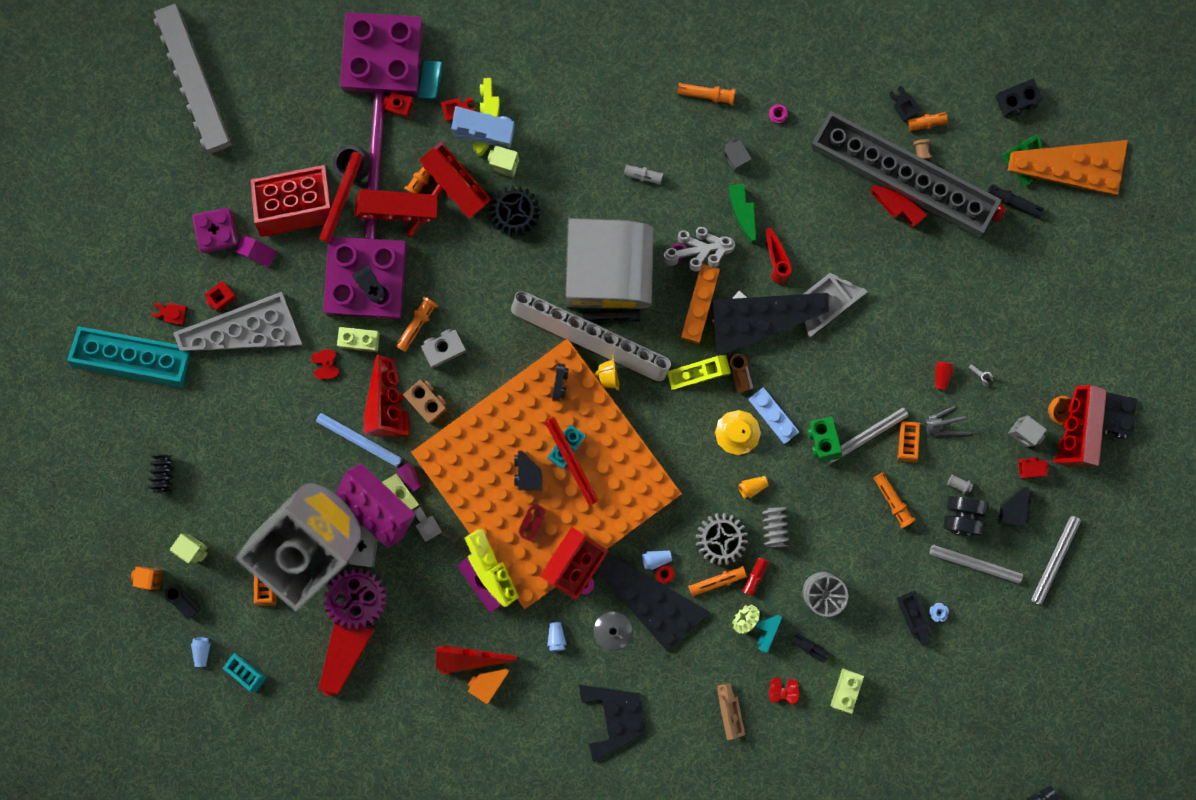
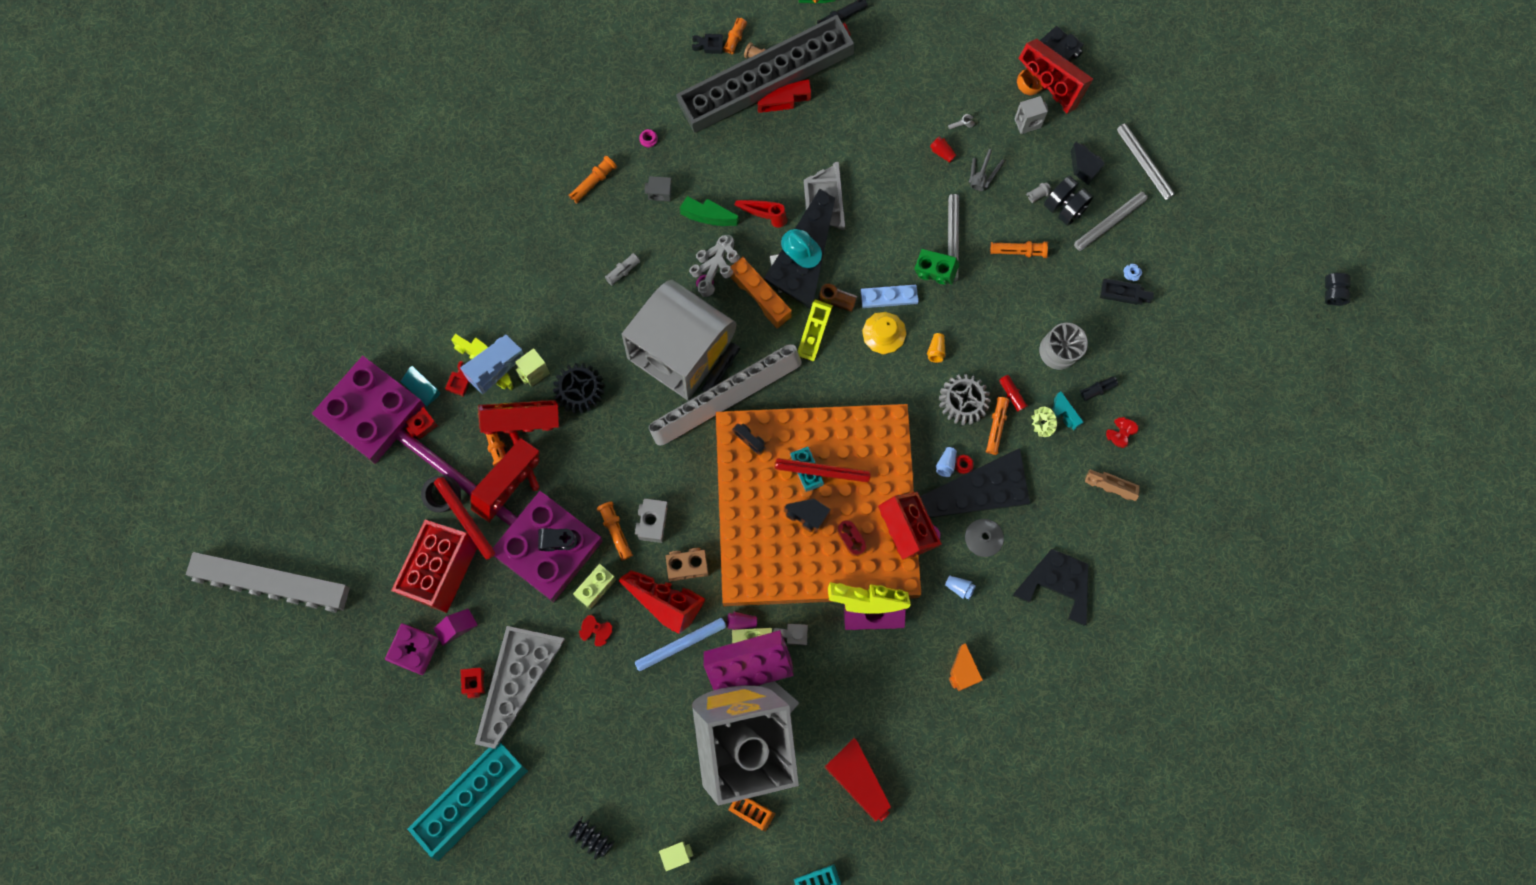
camera: 60 degrees left, 10 degrees down
(172, 313) = (457, 736): red plate -> none
(368, 609) = (834, 730): magenta gear -> none
(456, 659) = (928, 679): red wedge -> none
(608, 374) = (767, 396): yellow piece -> none
(760, 313) = (801, 248): none -> teal piece
(775, 527) = (982, 351): light grey piece -> none
(847, 691) = (1153, 381): yellowish green brick -> none
(908, 457) = (987, 221): orange slope -> none
(1033, 467) = (1061, 131): red brick -> none

